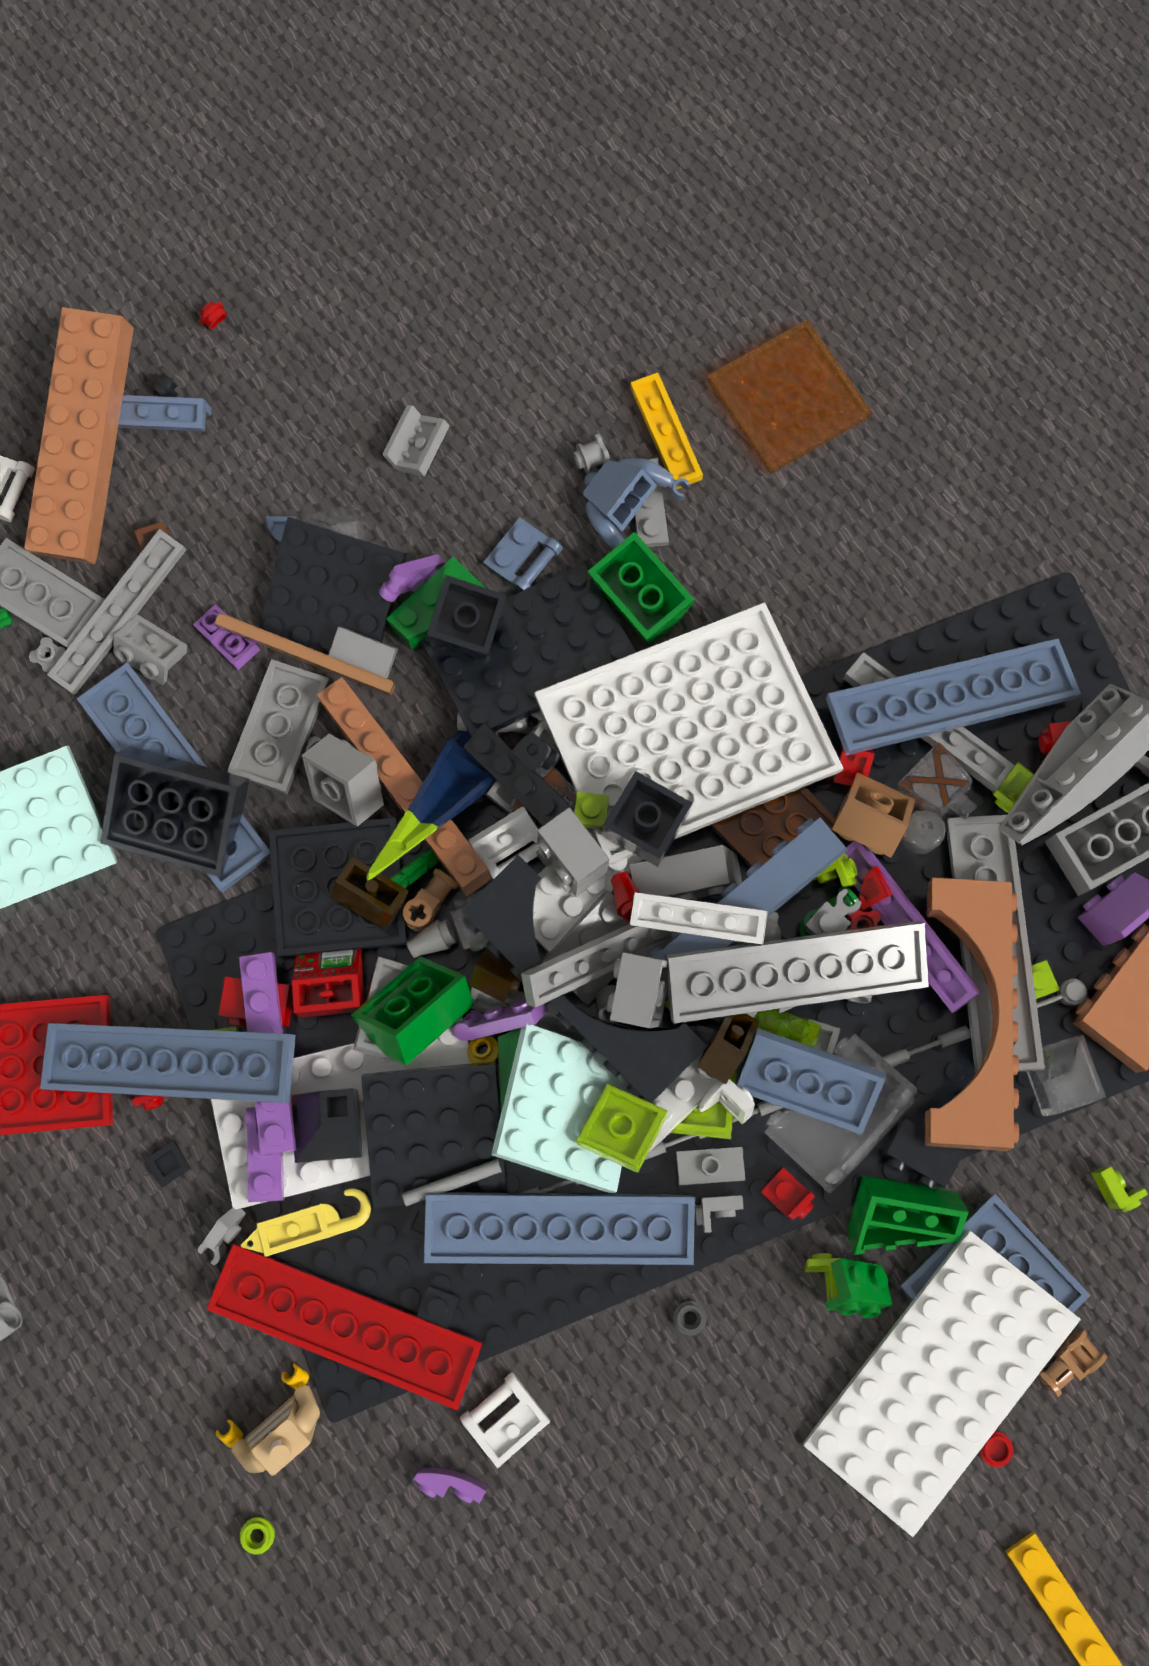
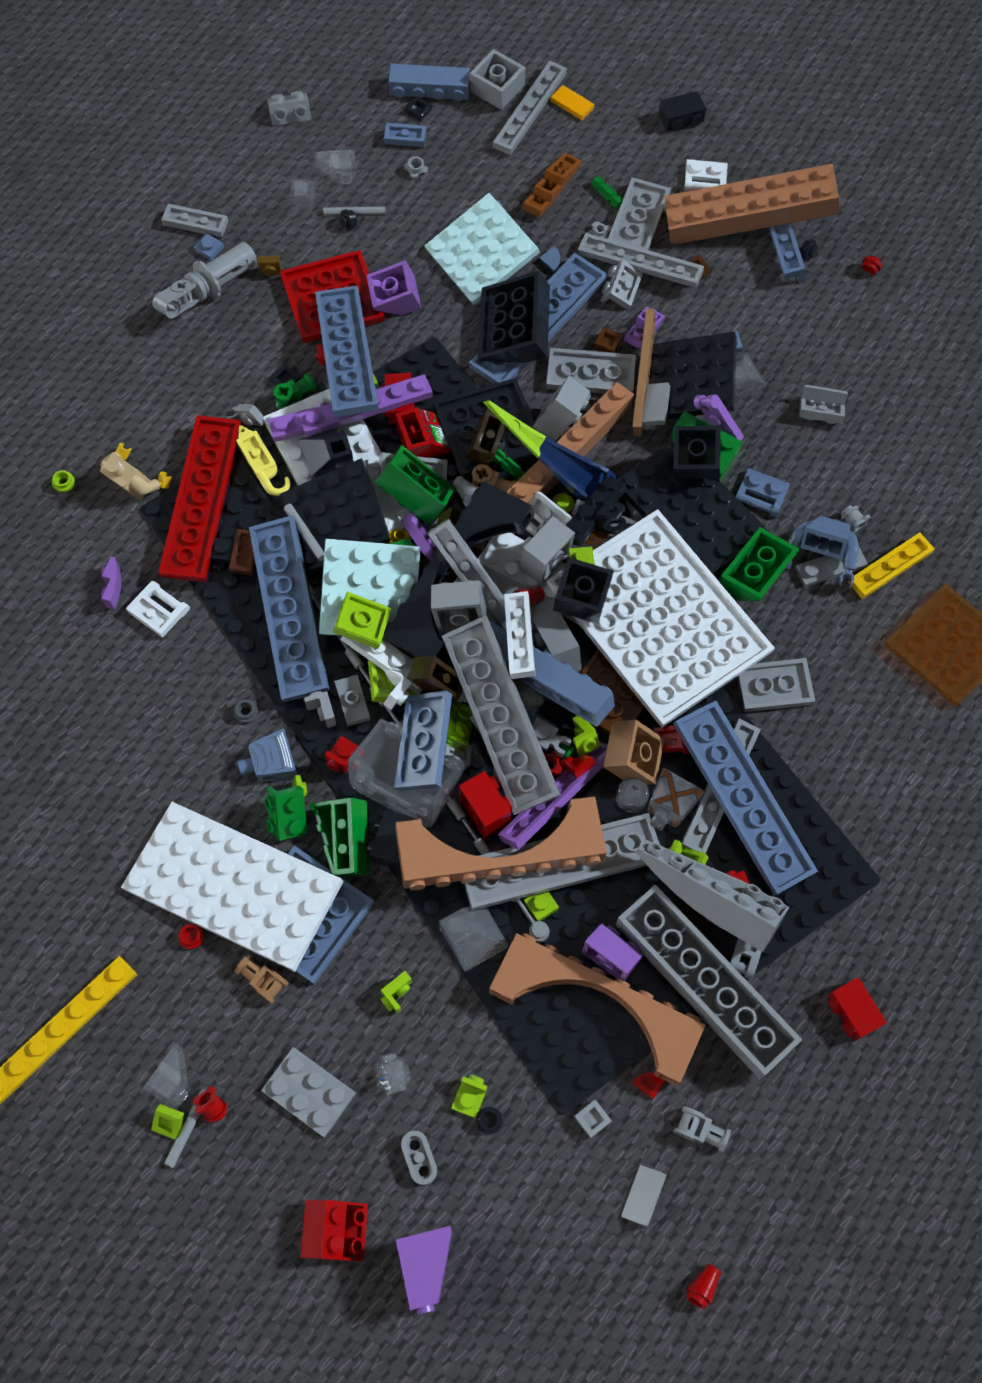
camera: 75 degrees right, 10 degrees down
(66, 971) = (394, 289): none -> medium lavender slope
(74, 733) = (551, 259): none -> sand blue tile
(198, 1153) = (293, 391): none -> green connector
(236, 690) = (608, 341): none -> reddish brown plate
(455, 1279) = (242, 556): none -> copper plate
(481, 815) = (564, 501): none -> lime plate
(771, 1296) = (270, 758): none -> sand blue torso
(802, 614) = (776, 685): none -> light grey plate
(913, 1018) = (485, 804): none -> red brick

